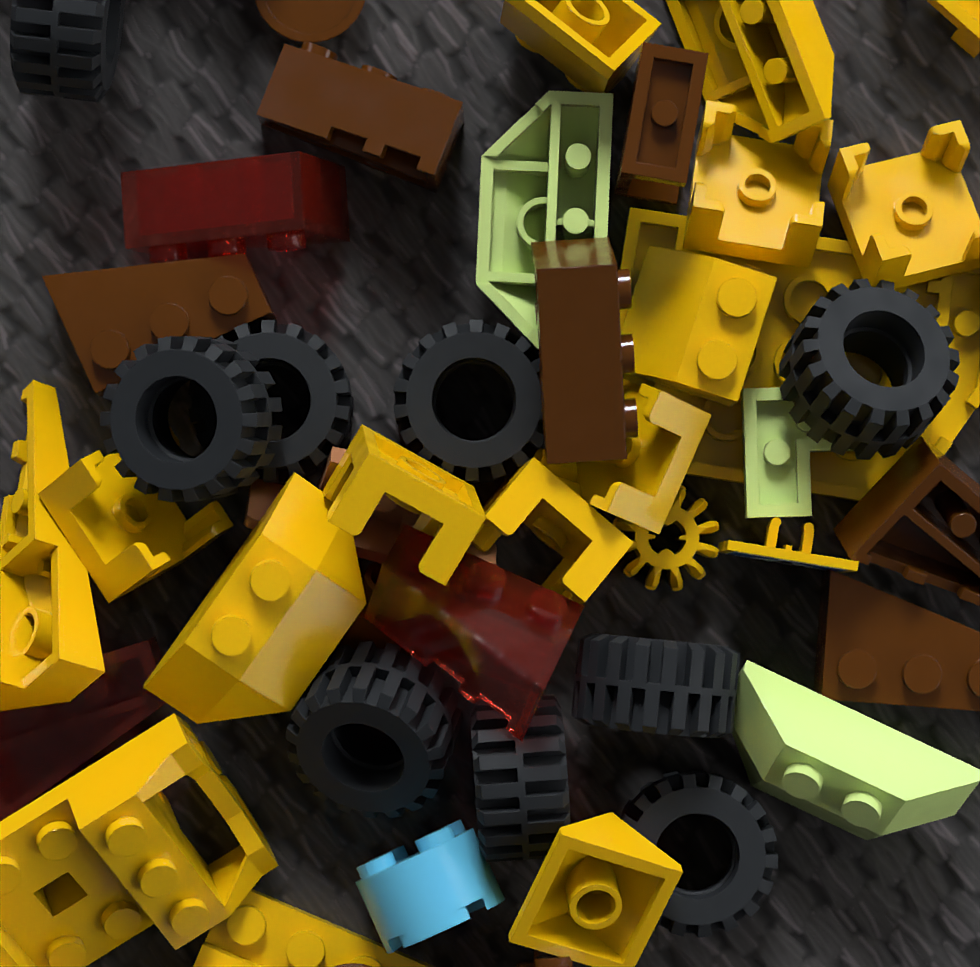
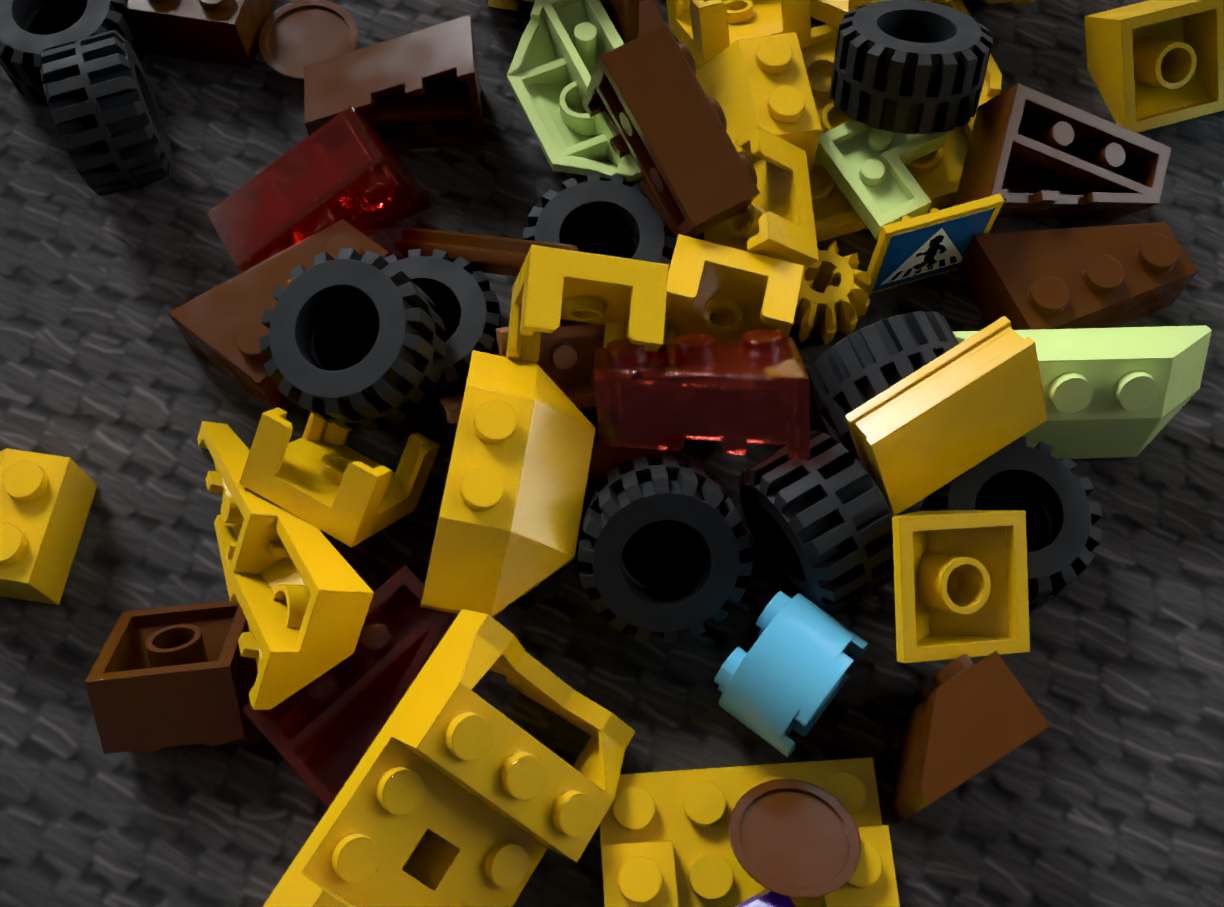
camera: 25 degrees left, 20 degrees down
(362, 362) = (484, 252): none -> reddish brown axle
(665, 759) = (949, 415): none -> yellow piece

